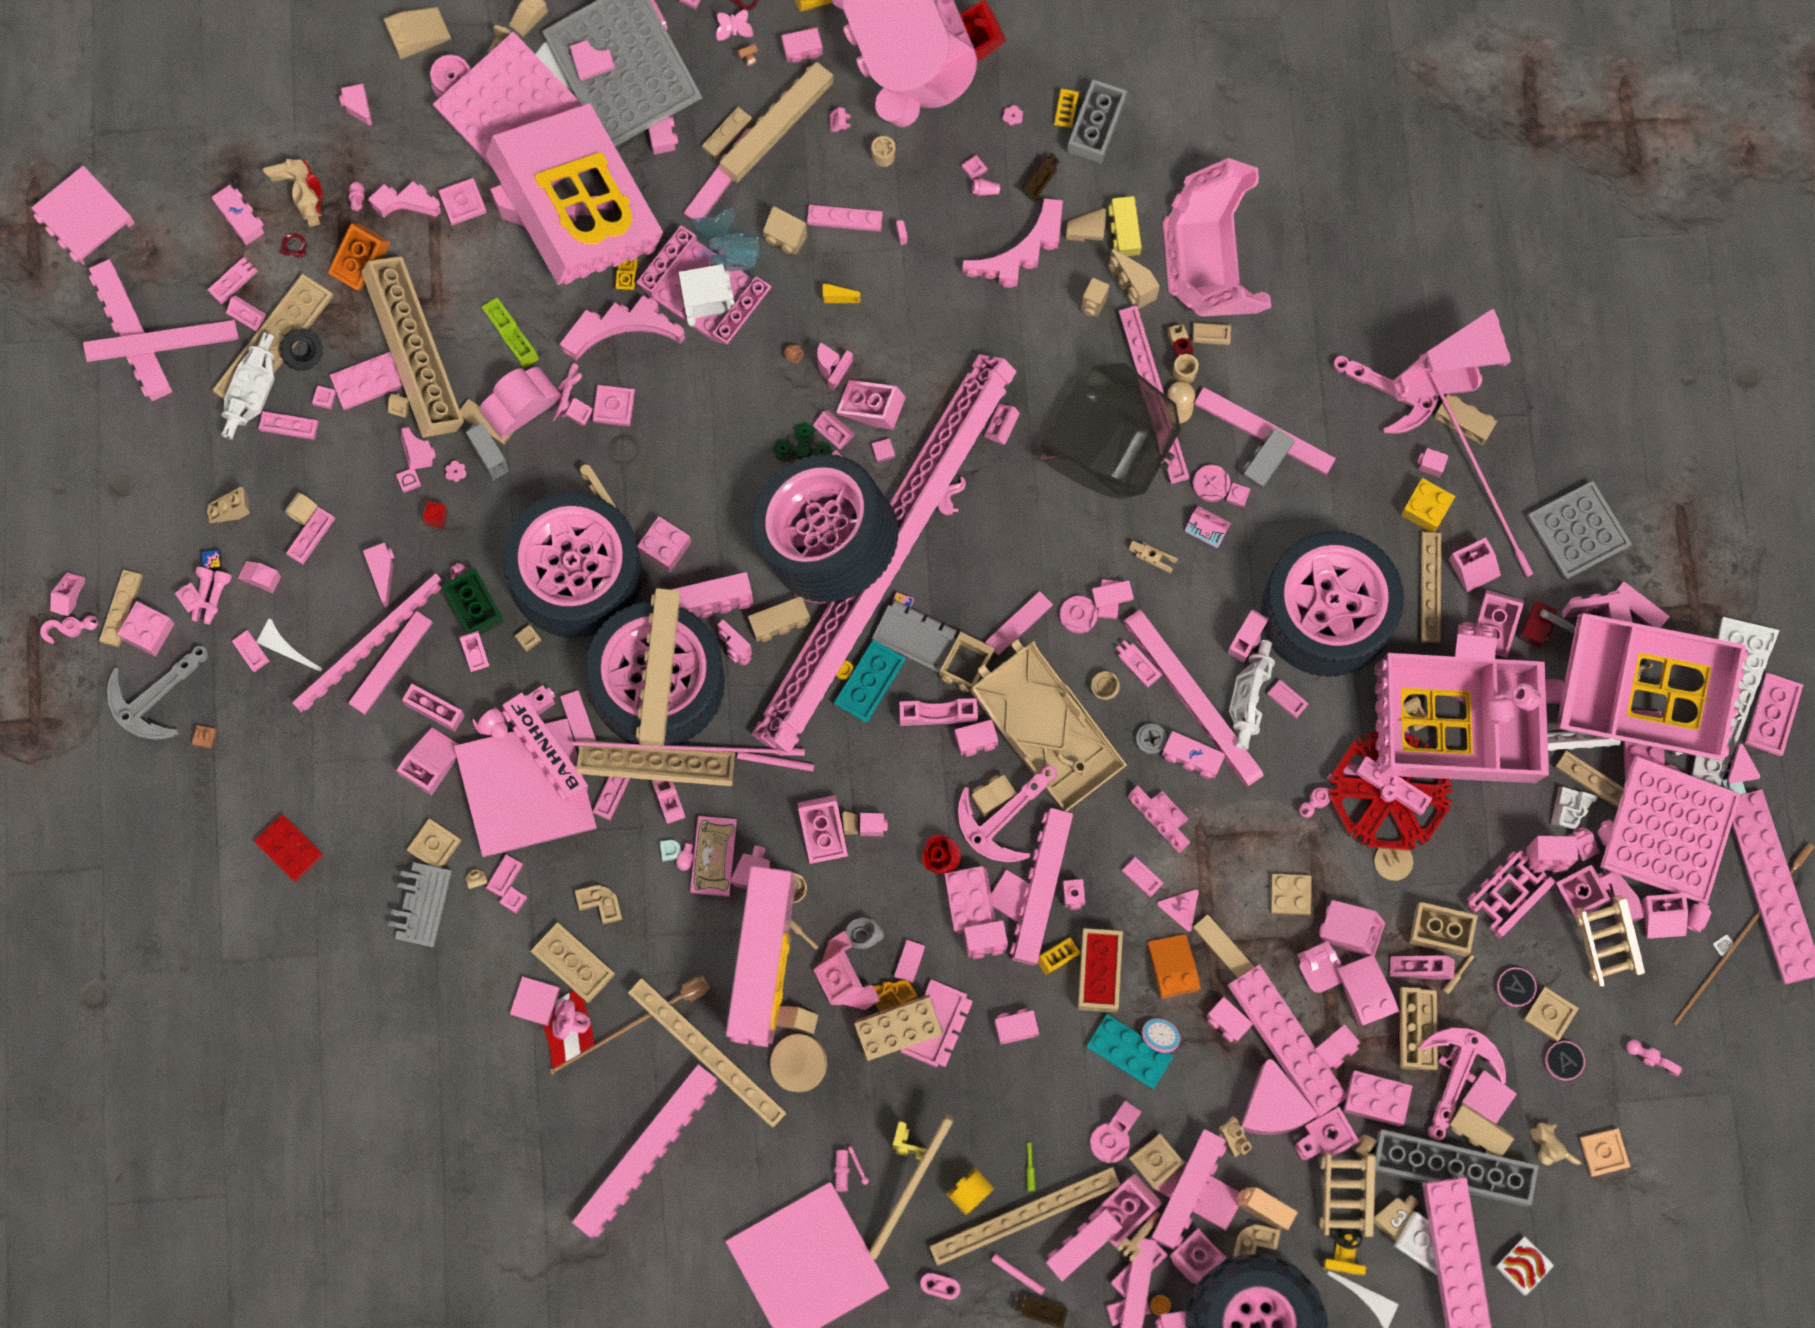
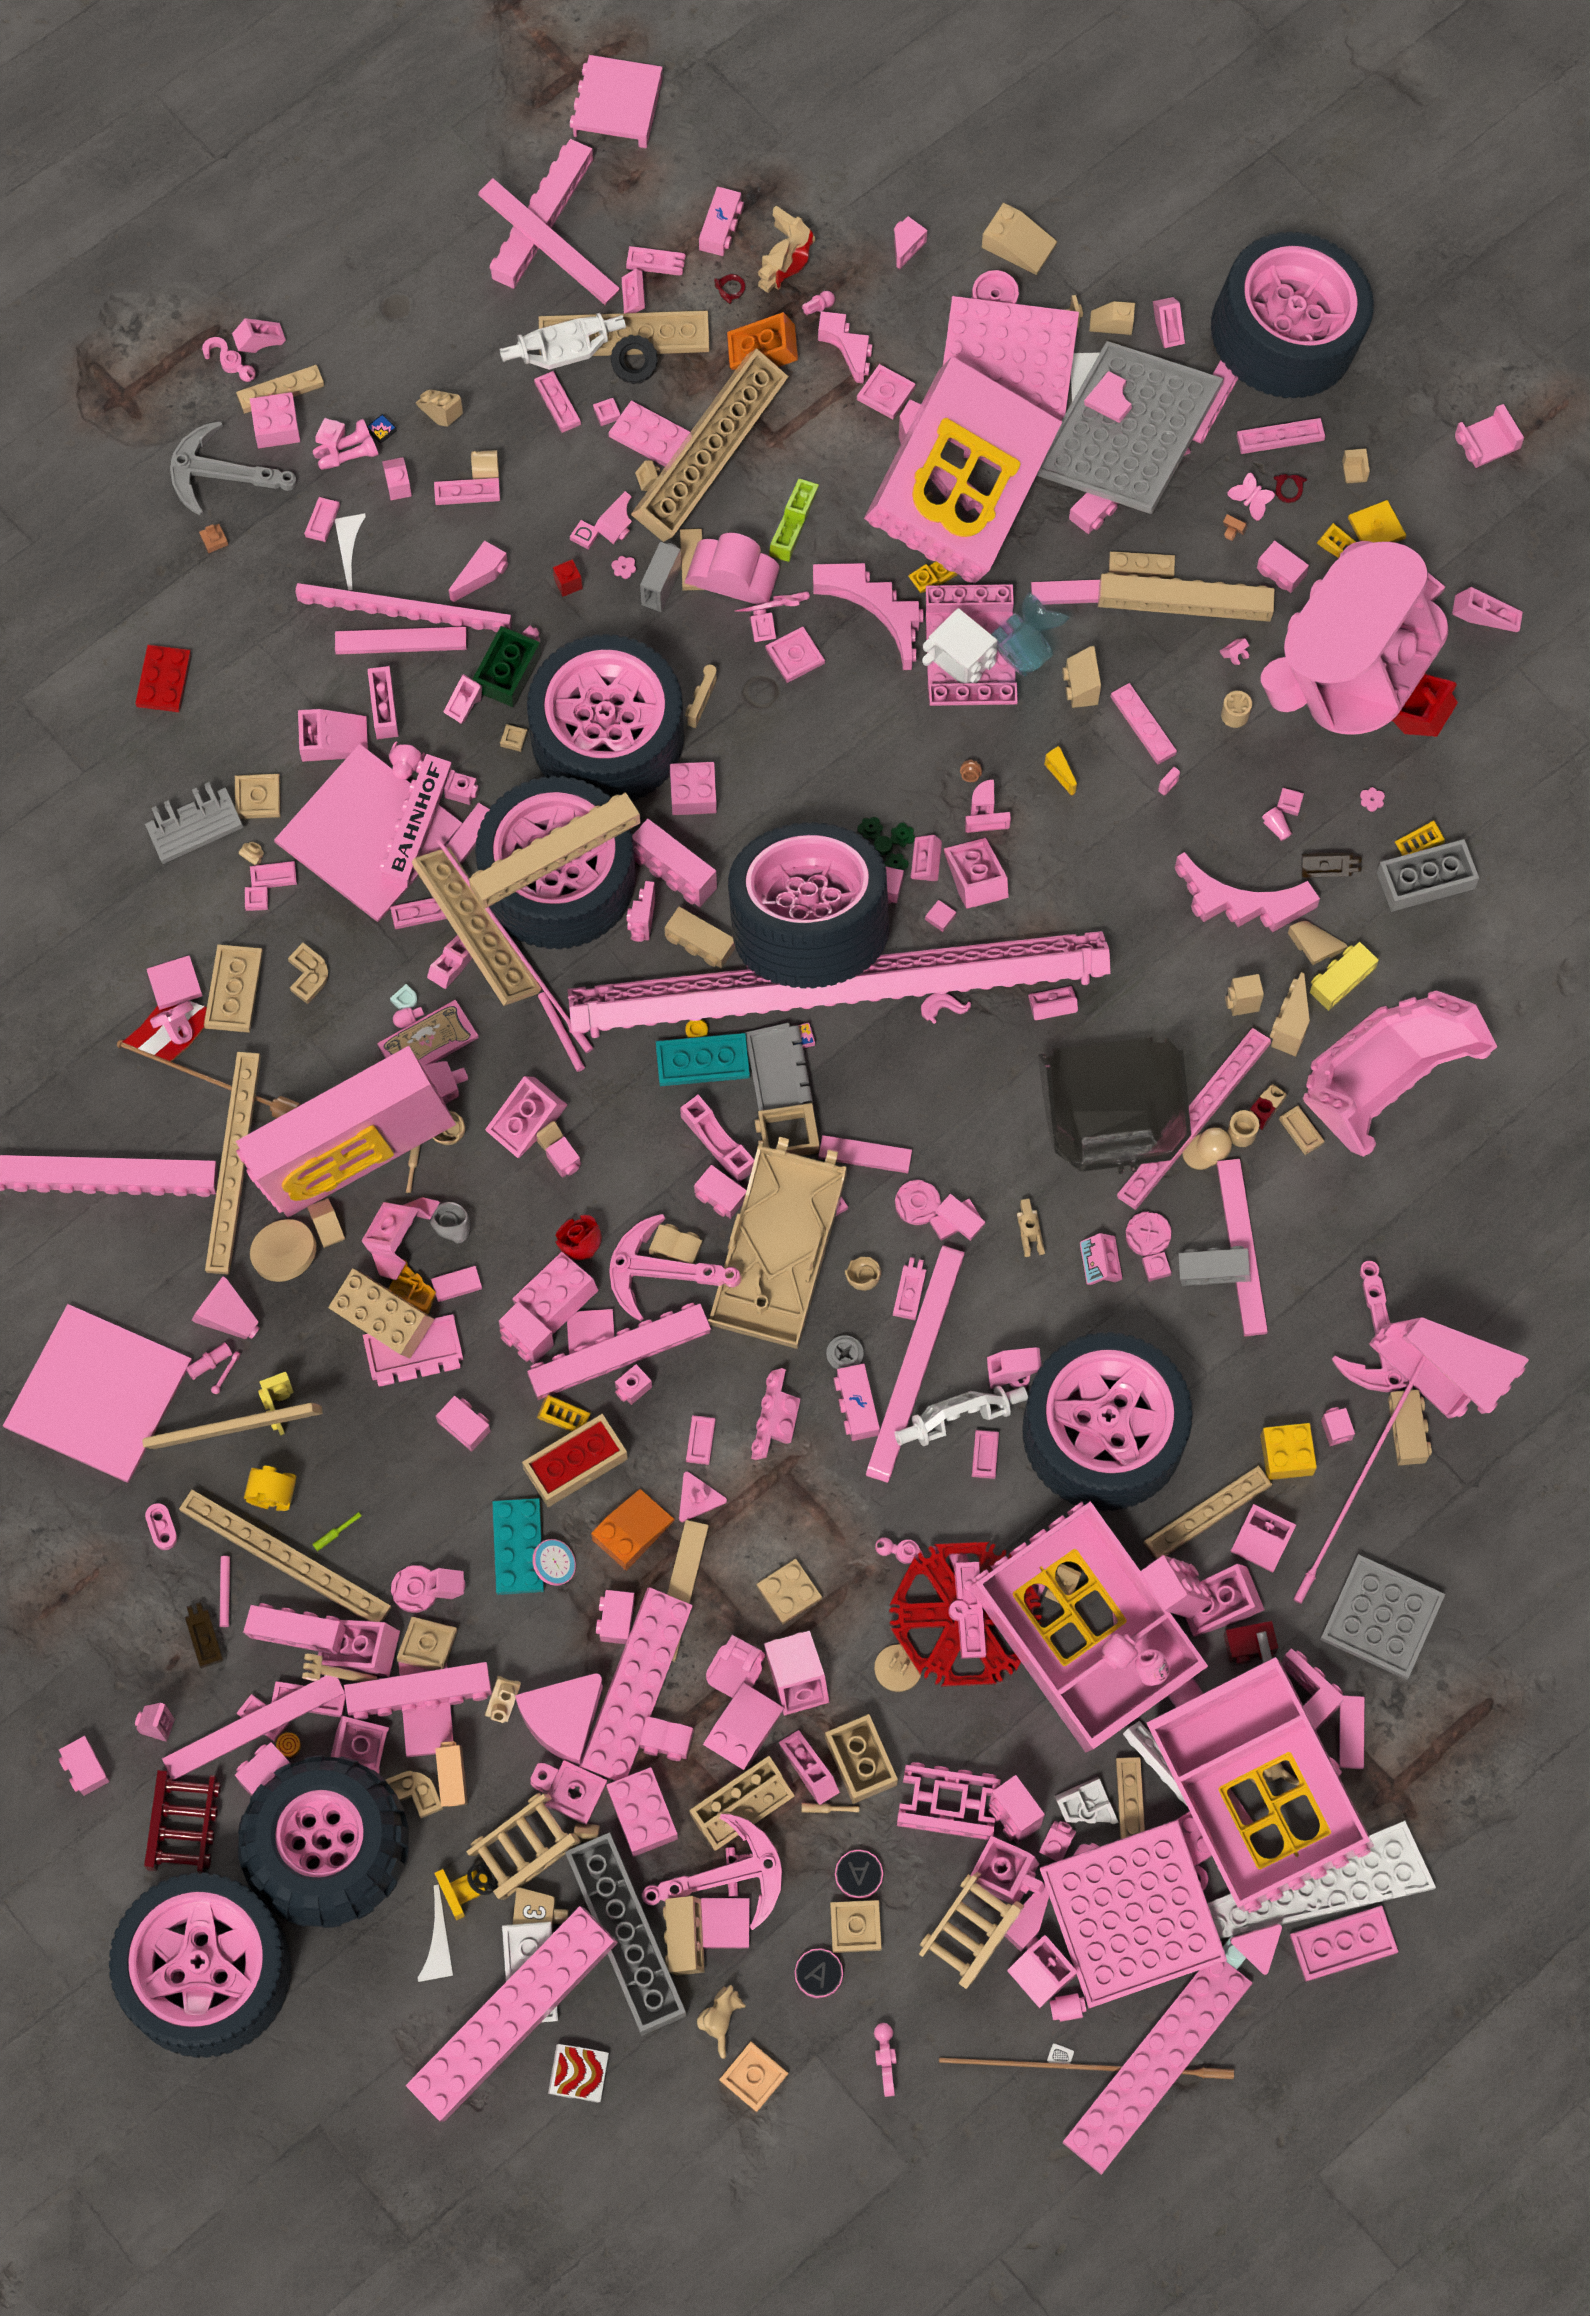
camera: 55 degrees right, 5 degrees down
(814, 1133) = (226, 1312): none -> bright pink slope

